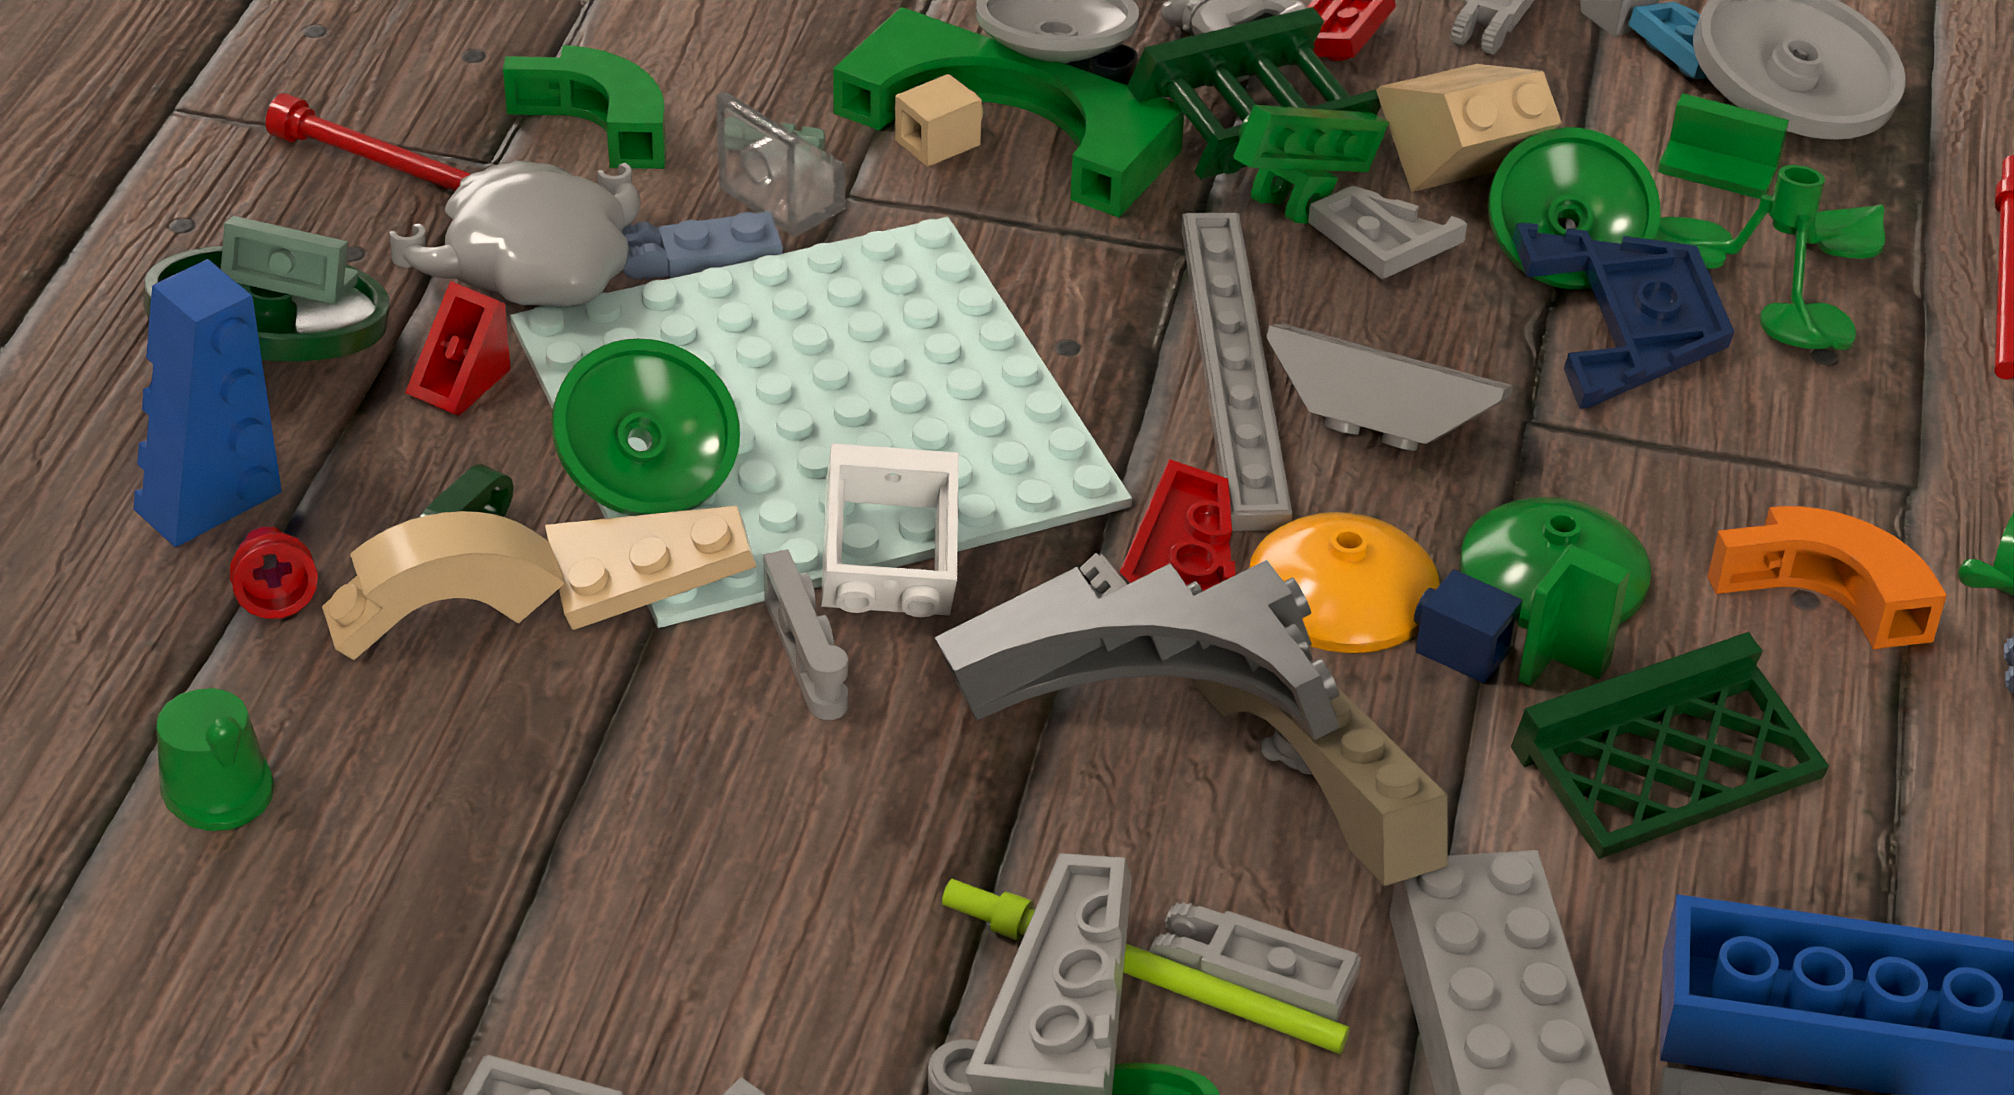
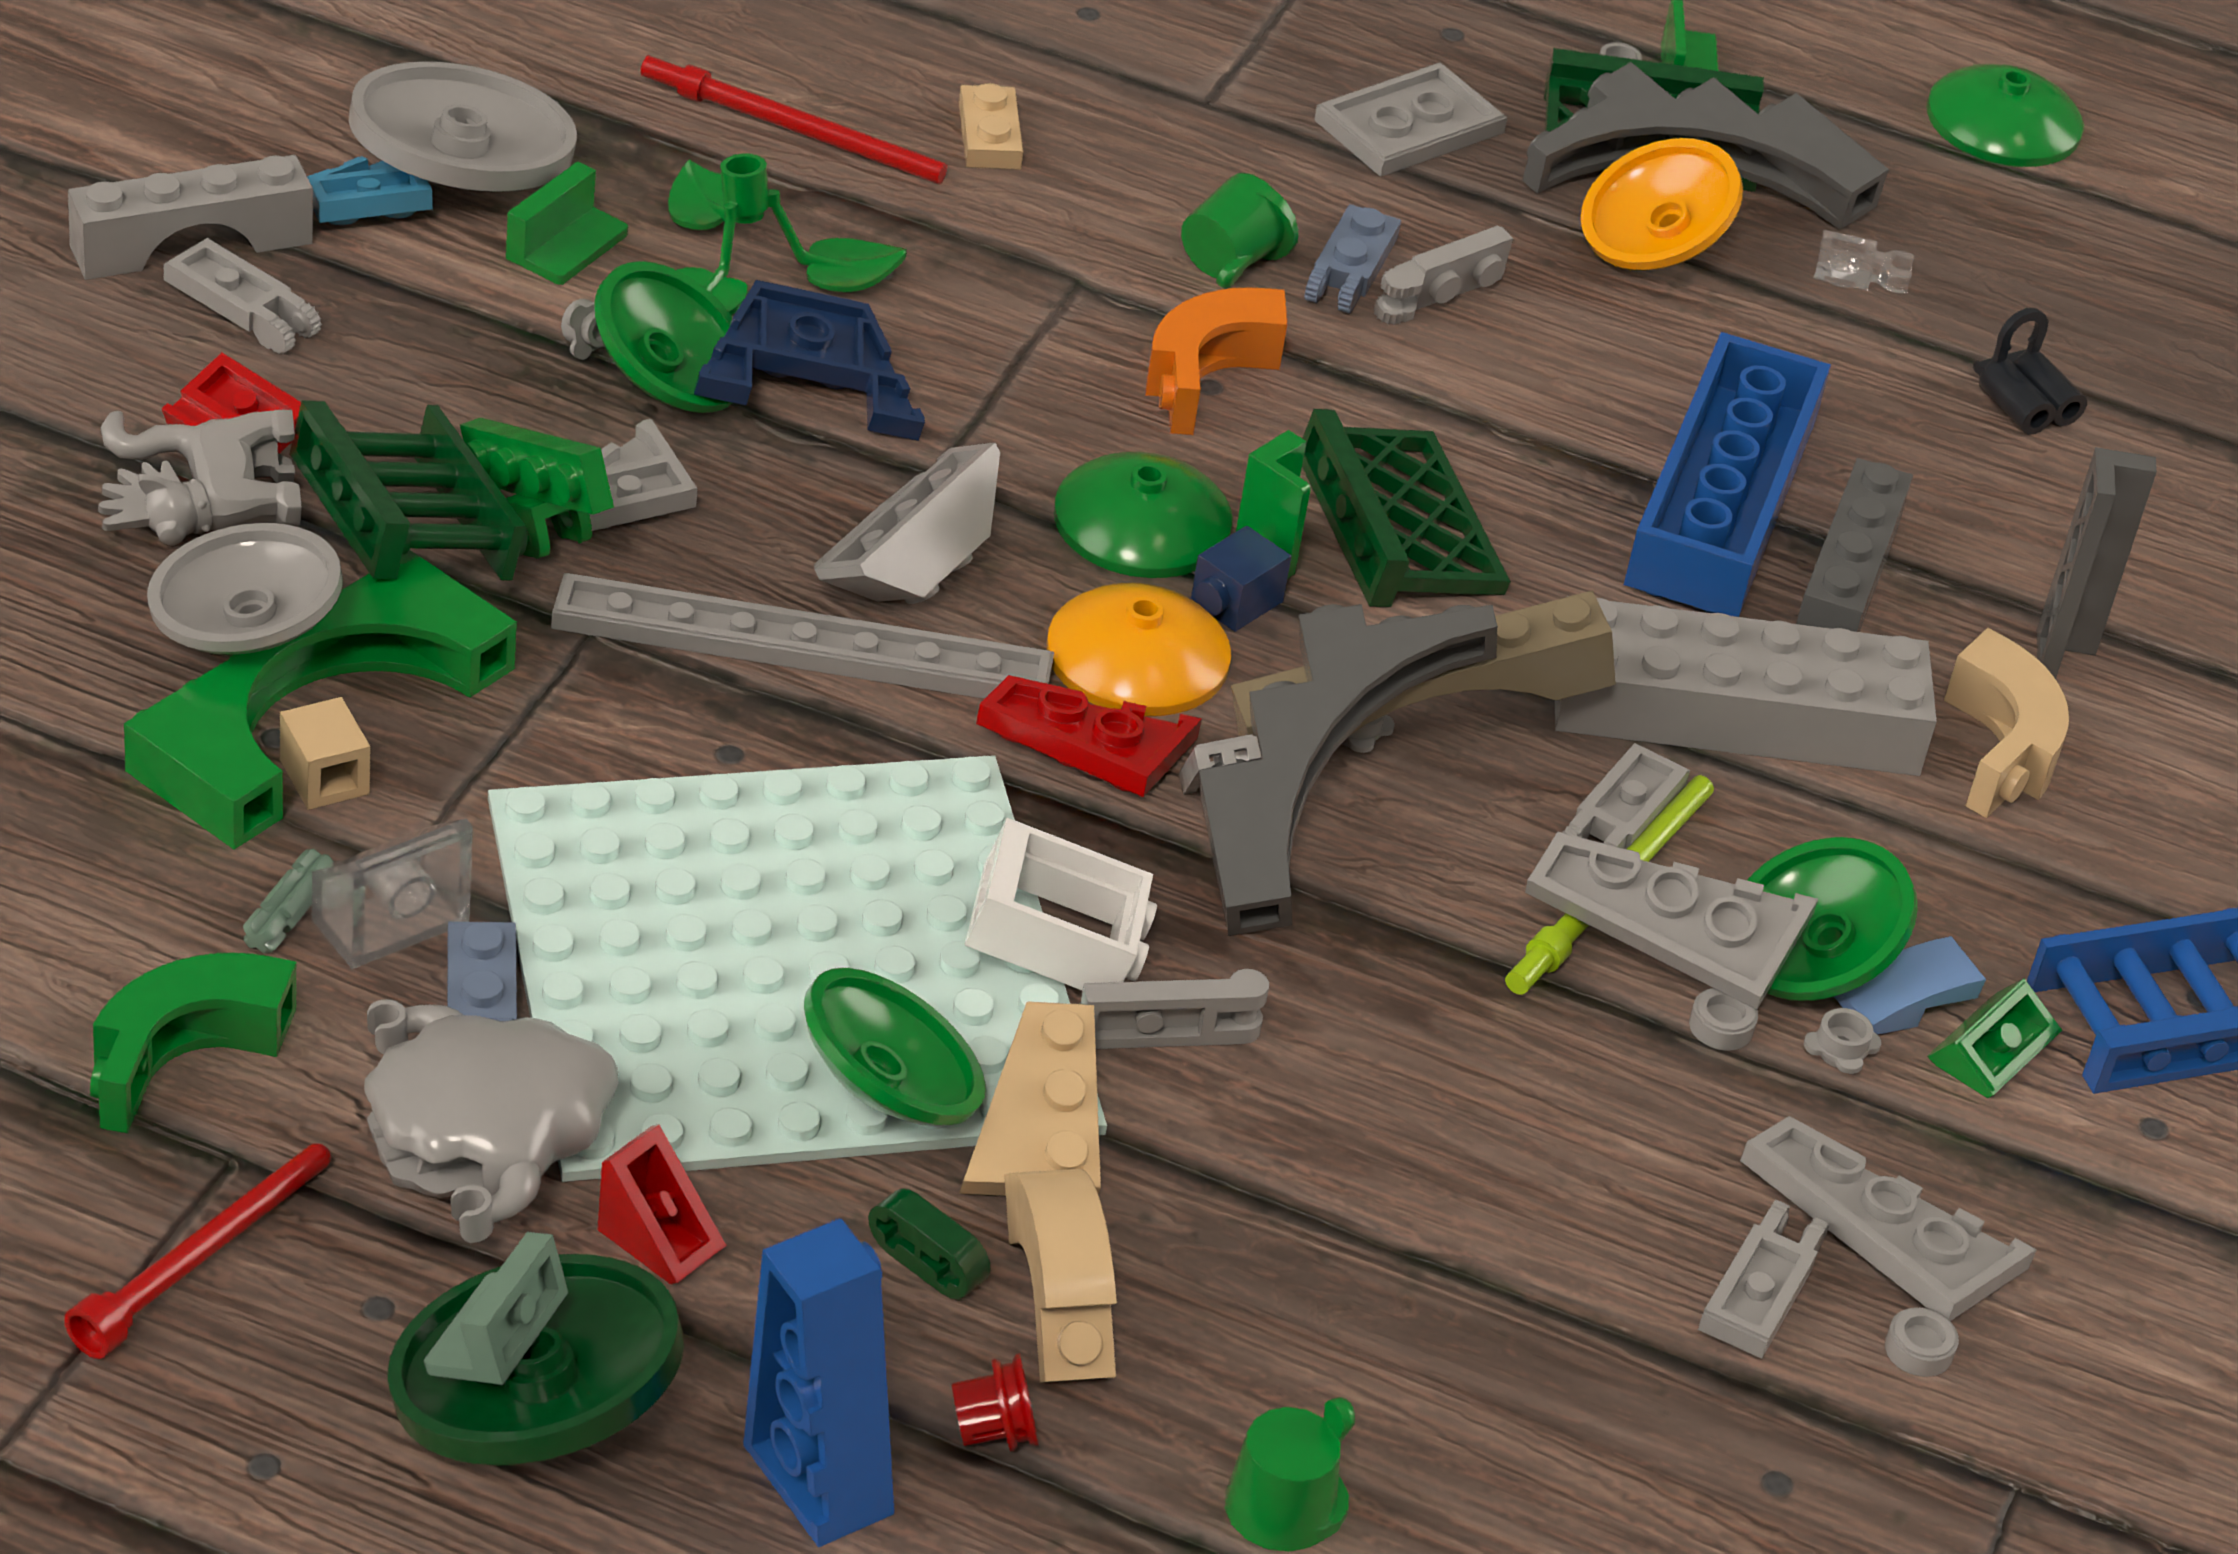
camera: 85 degrees left, 0 degrees up
(1464, 120) = (530, 349): tan slope -> none

